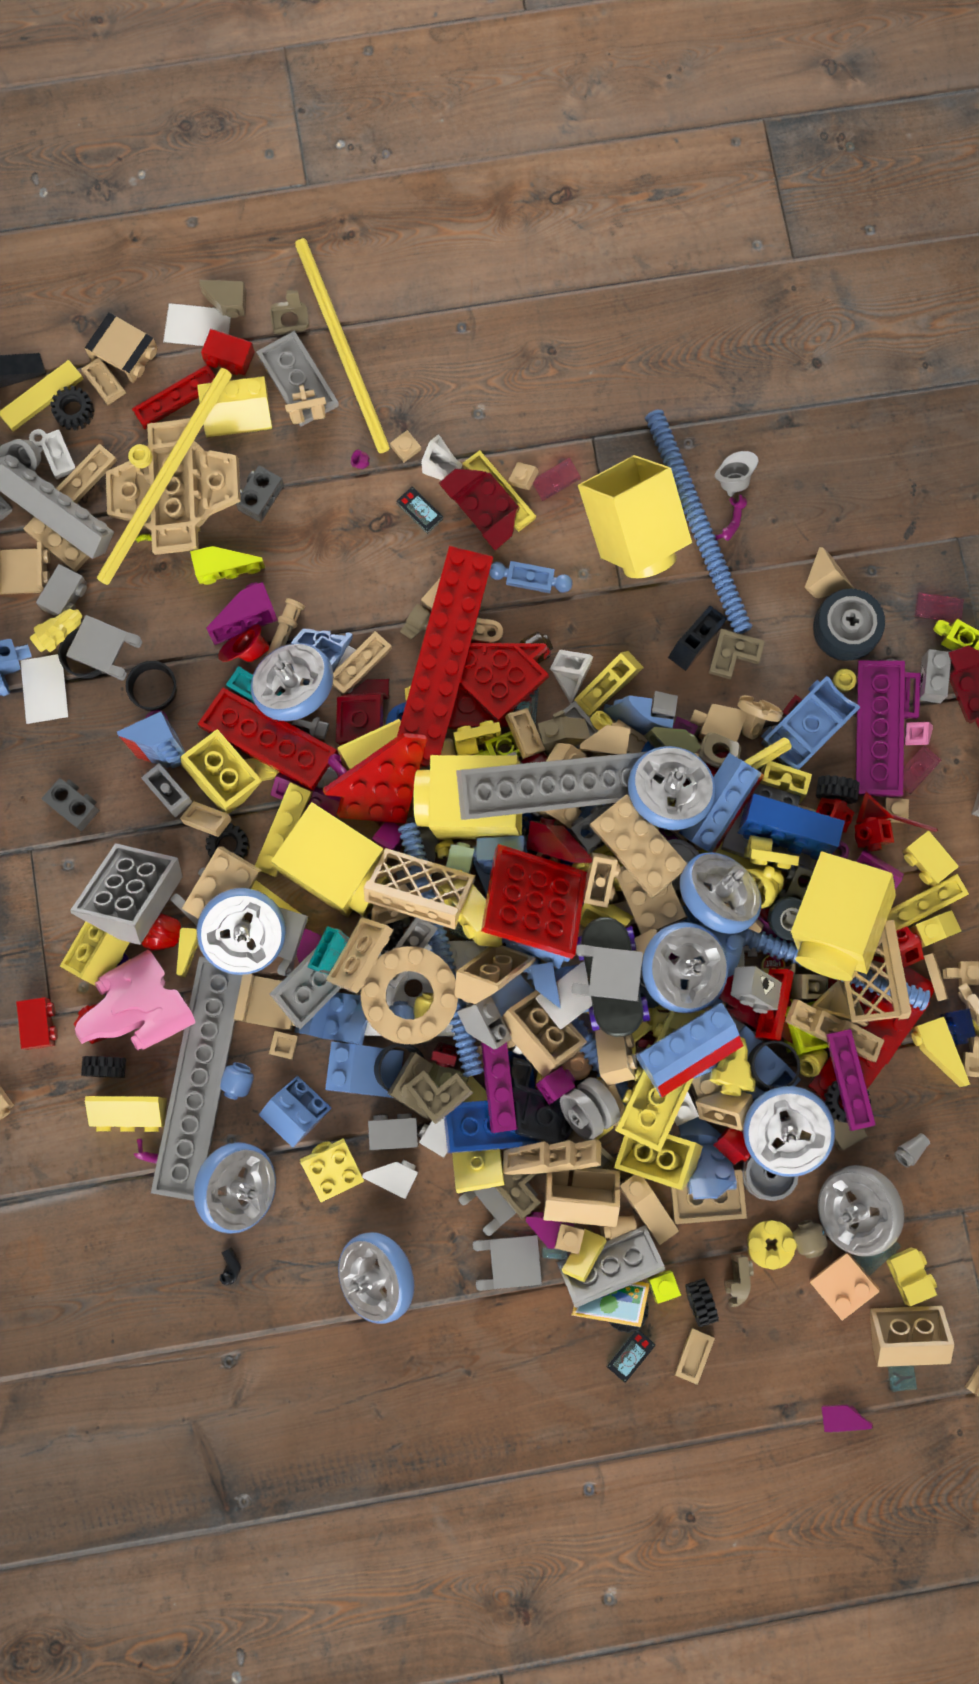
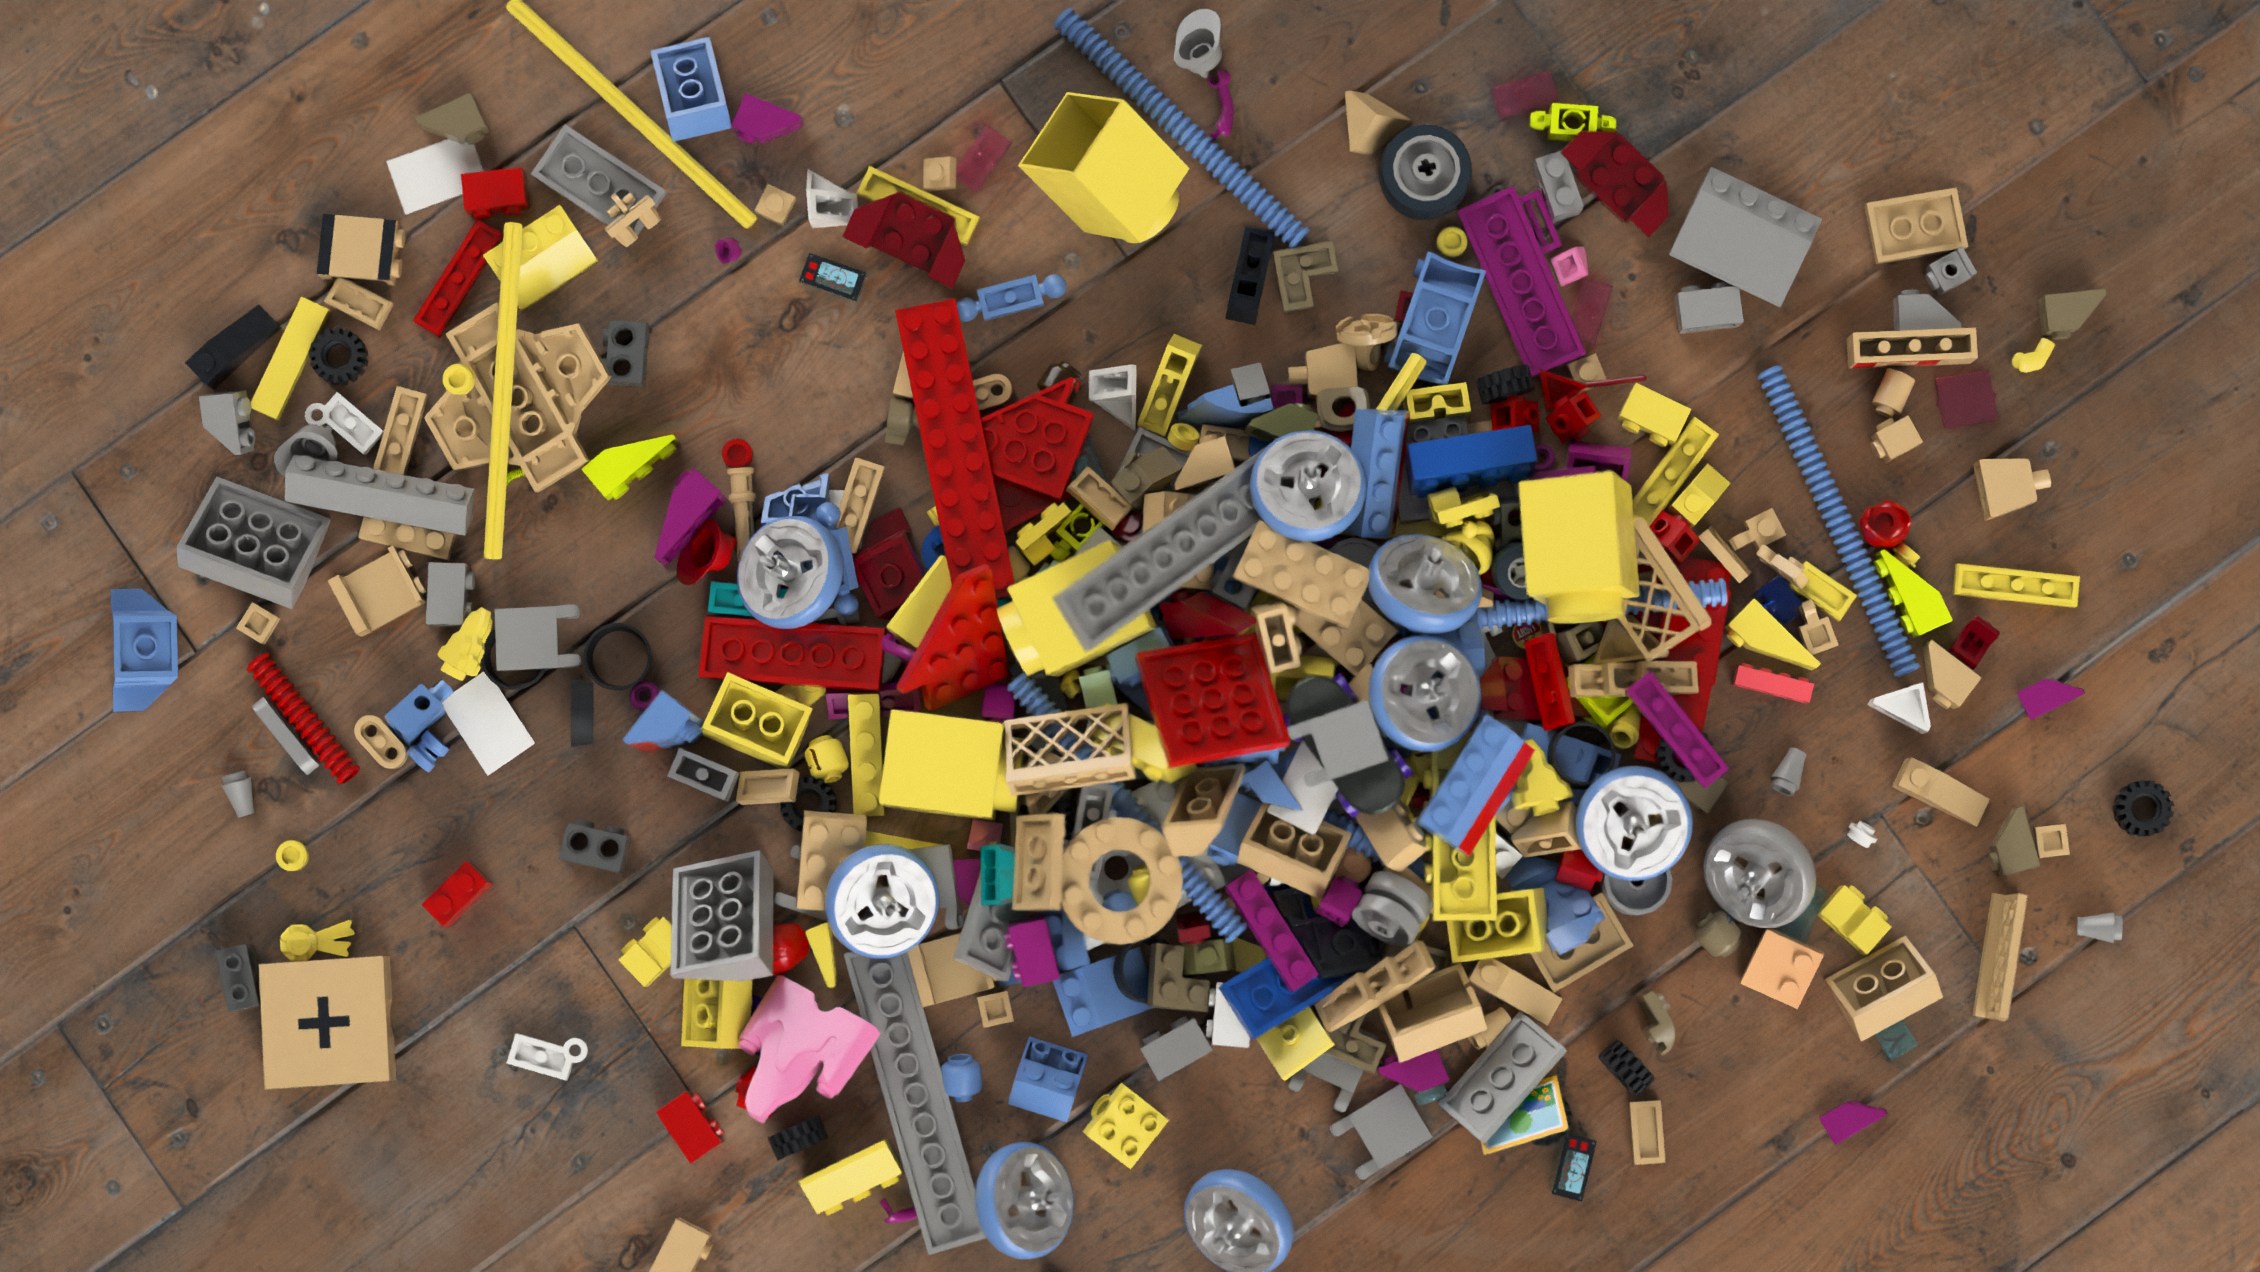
camera: 20 degrees left, 5 degrees up
(65, 892) = (651, 954): none -> light yellow brick
(107, 709) = (581, 712): none -> black tyre
(255, 820) = (826, 759): none -> light yellow head
(293, 305) = (545, 90): dark tan piece -> none
(300, 592) = (737, 453): none -> red tile
(320, 722) = (846, 603): none -> medium blue plate
(327, 1016) = (1033, 950): none -> magenta brick
(336, 920) = (983, 833): none -> bright pink slope
(387, 348) = (691, 89): none -> medium blue slope
(394, 1177) = (1201, 1098): white slope -> none
(424, 389) = (763, 121): none -> magenta slope
(437, 1100) = (1210, 986): dark tan plate -> none
(485, 1023) = (1223, 870): light grey slope -> none
(569, 1238) = (1440, 1069): tan plate -> none
(581, 1264) = (1466, 1080): light yellow tile -> none
(663, 1286) = (1574, 1070): neon yellow brick -> none
(756, 989) = (1519, 676): light grey brick -> none
(757, 1246) = (1660, 970): light yellow plate -> none
(927, 1082) = (1773, 684): none -> coral piece
(944, 1218) = (1862, 833): none -> white plate

